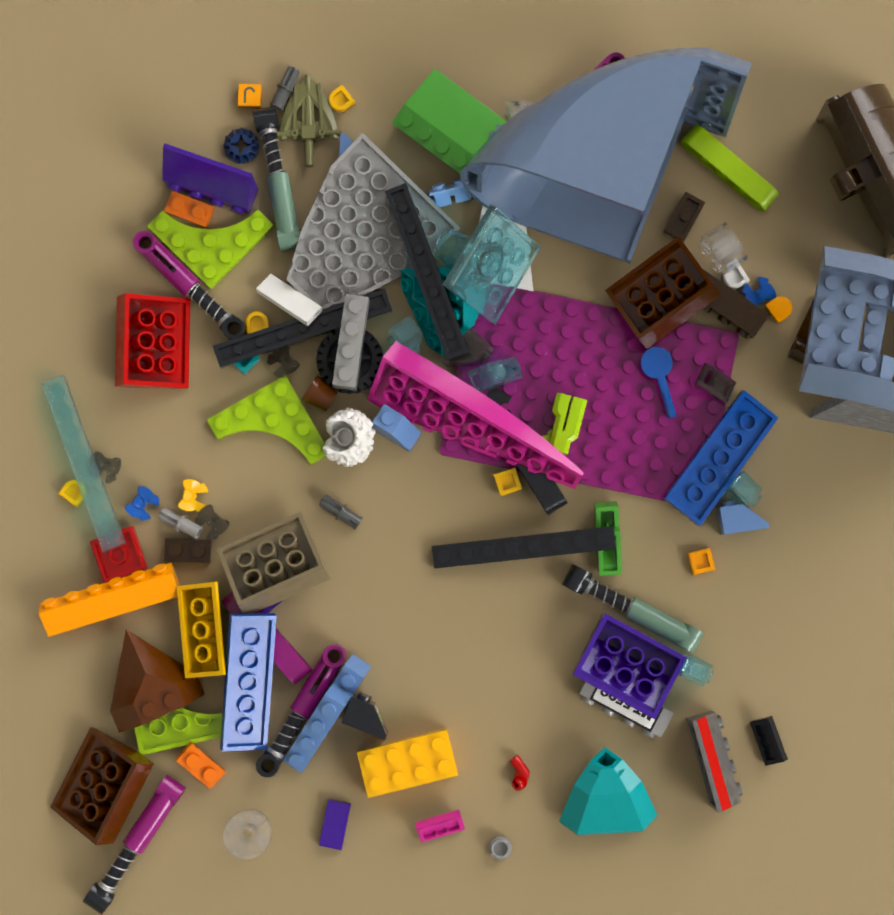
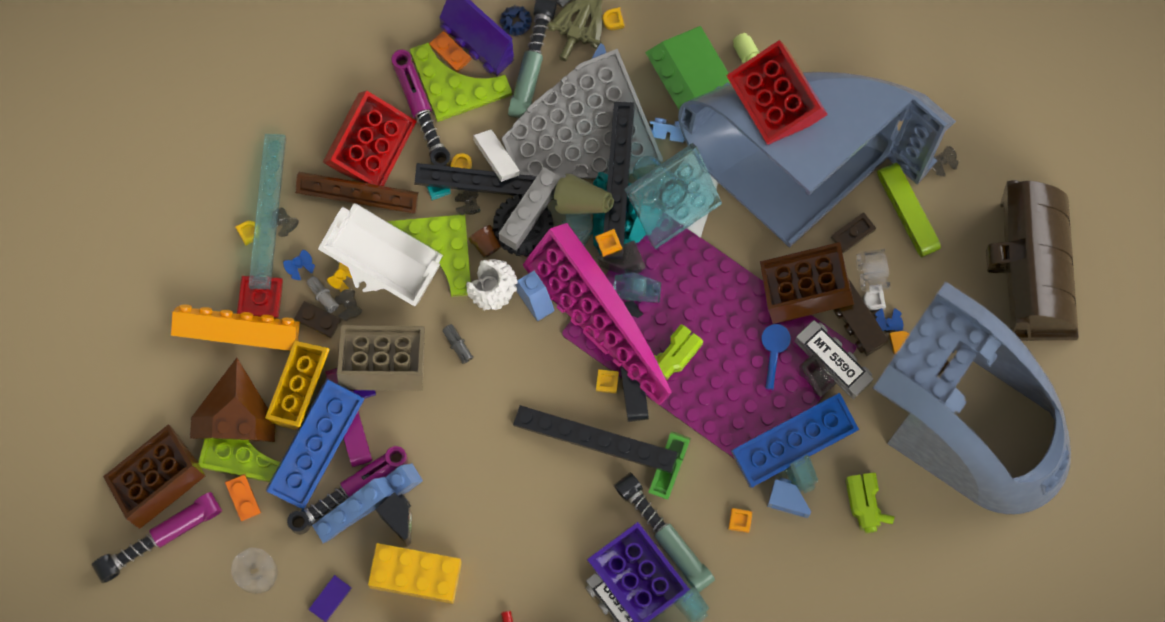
camera: 25 degrees right, 10 degrees down
(165, 402) = (356, 192): none -> reddish brown plate
(222, 459) = (380, 254): none -> white piece
(398, 307) = (581, 197): none -> olive cone
(448, 343) = (608, 242): none -> light orange tile
(490, 71) = (745, 47): none -> yellowish green brick
(561, 120) = (776, 93): none -> red slope
(728, 359) = (839, 363): none -> brick
(746, 96) = (947, 156): none -> clear smoke piece
(814, 490) = (863, 502): none -> lime piece

